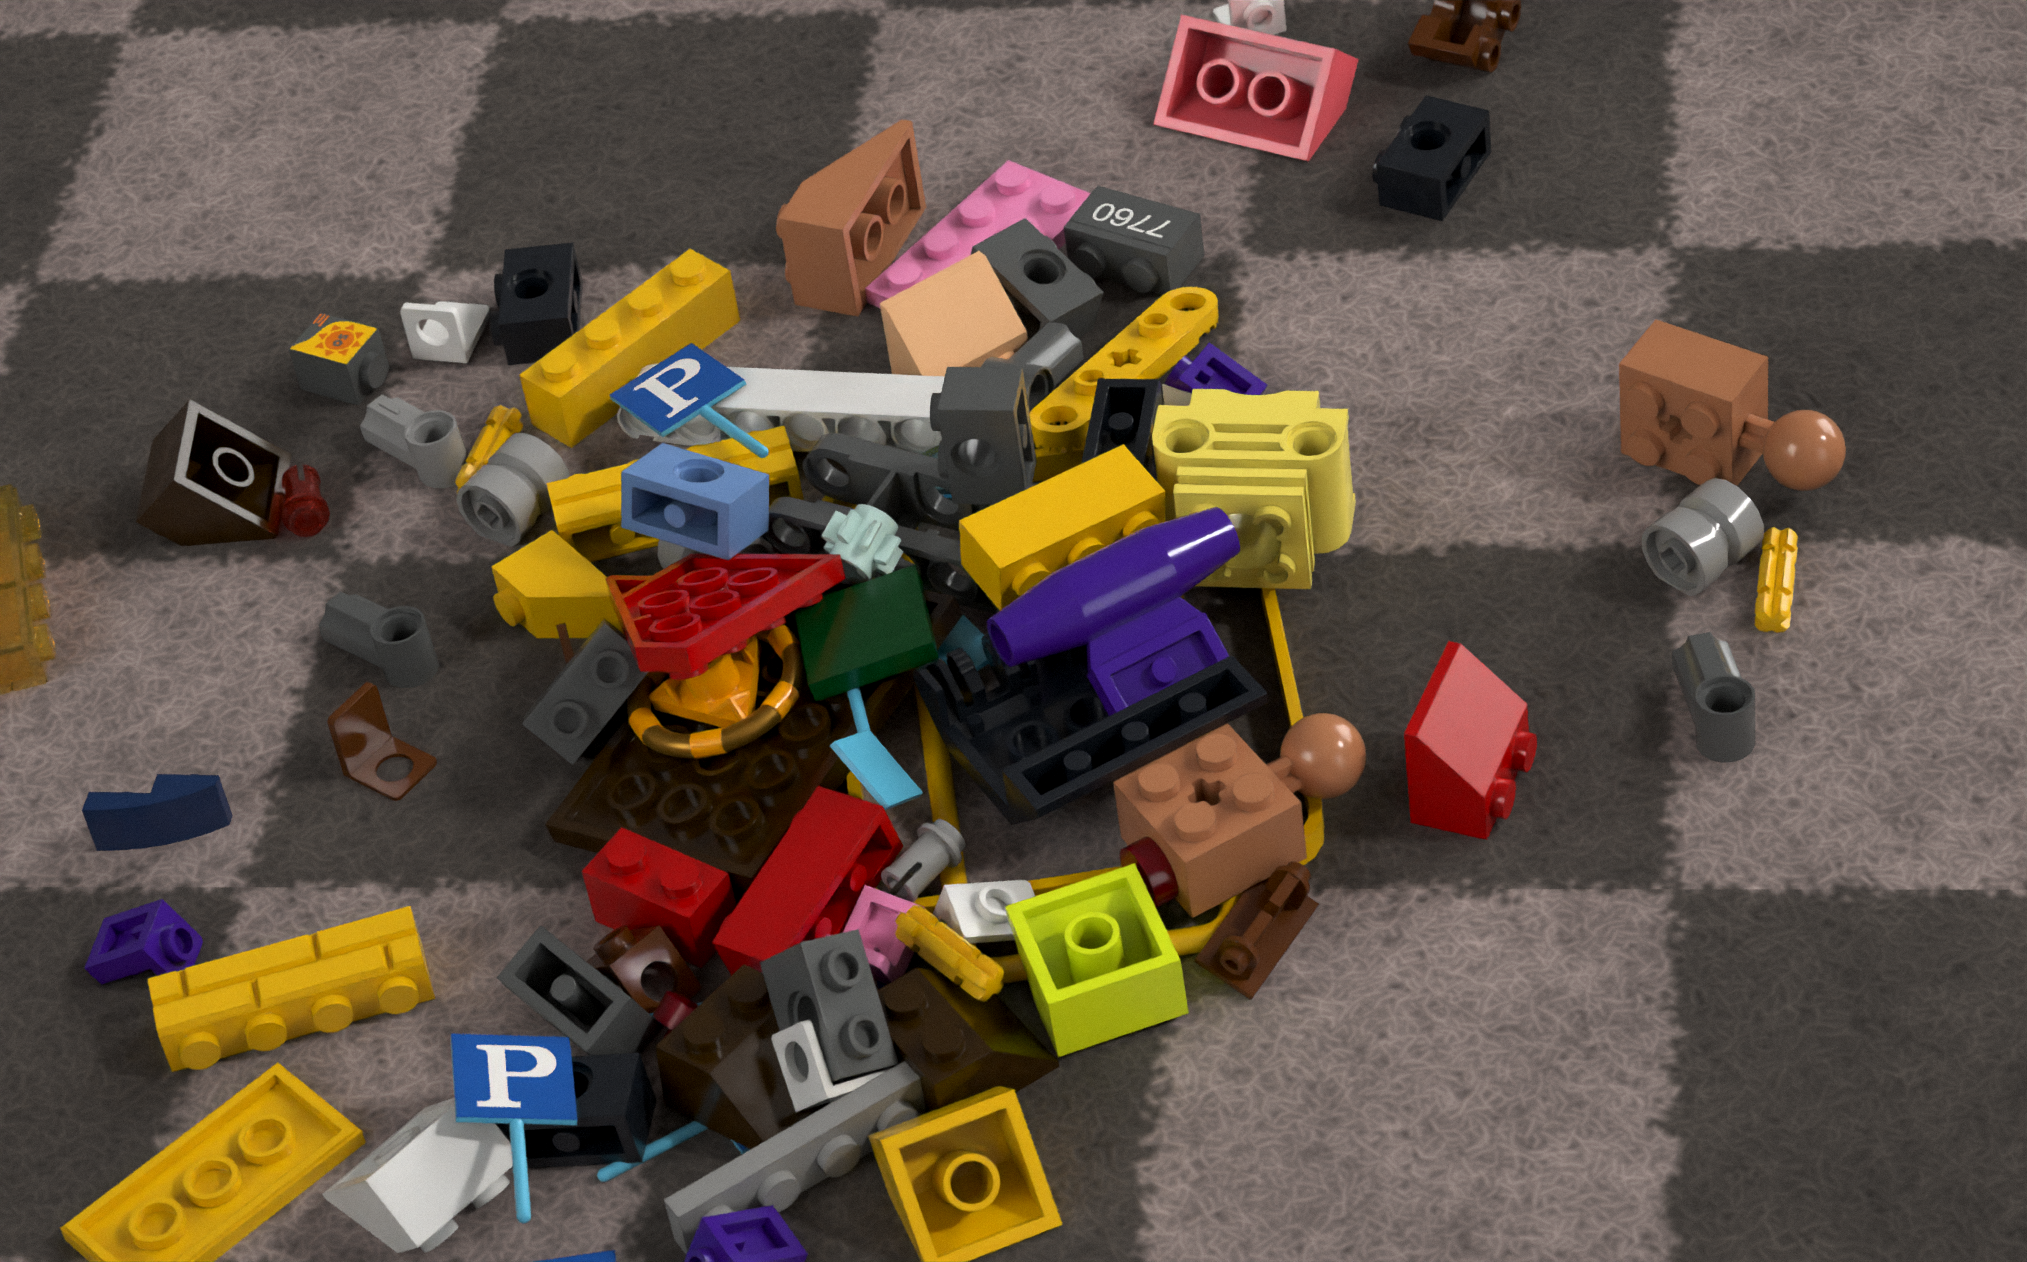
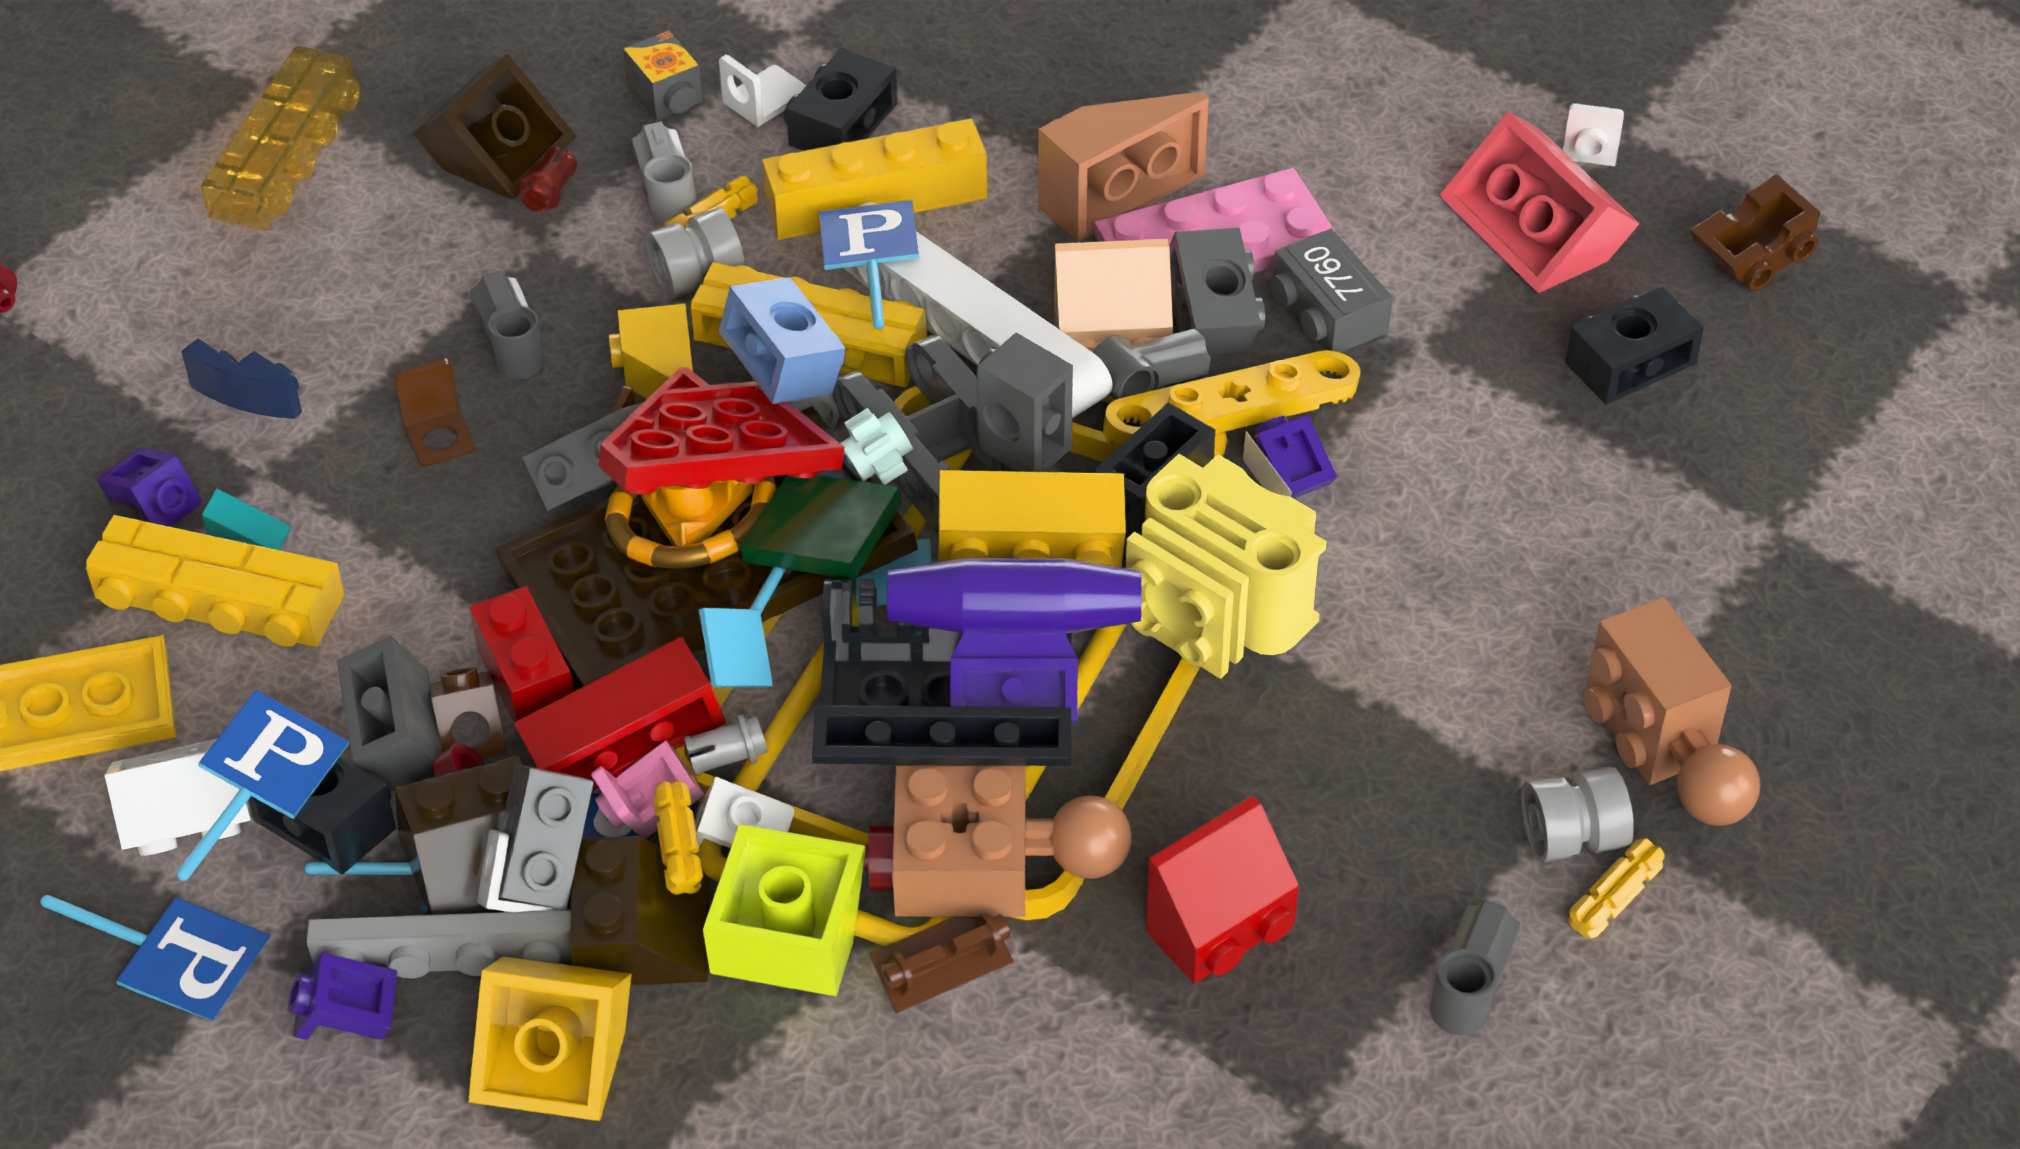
camera: 25 degrees right, 5 degrees up
(262, 928) = (240, 522): none -> teal piece

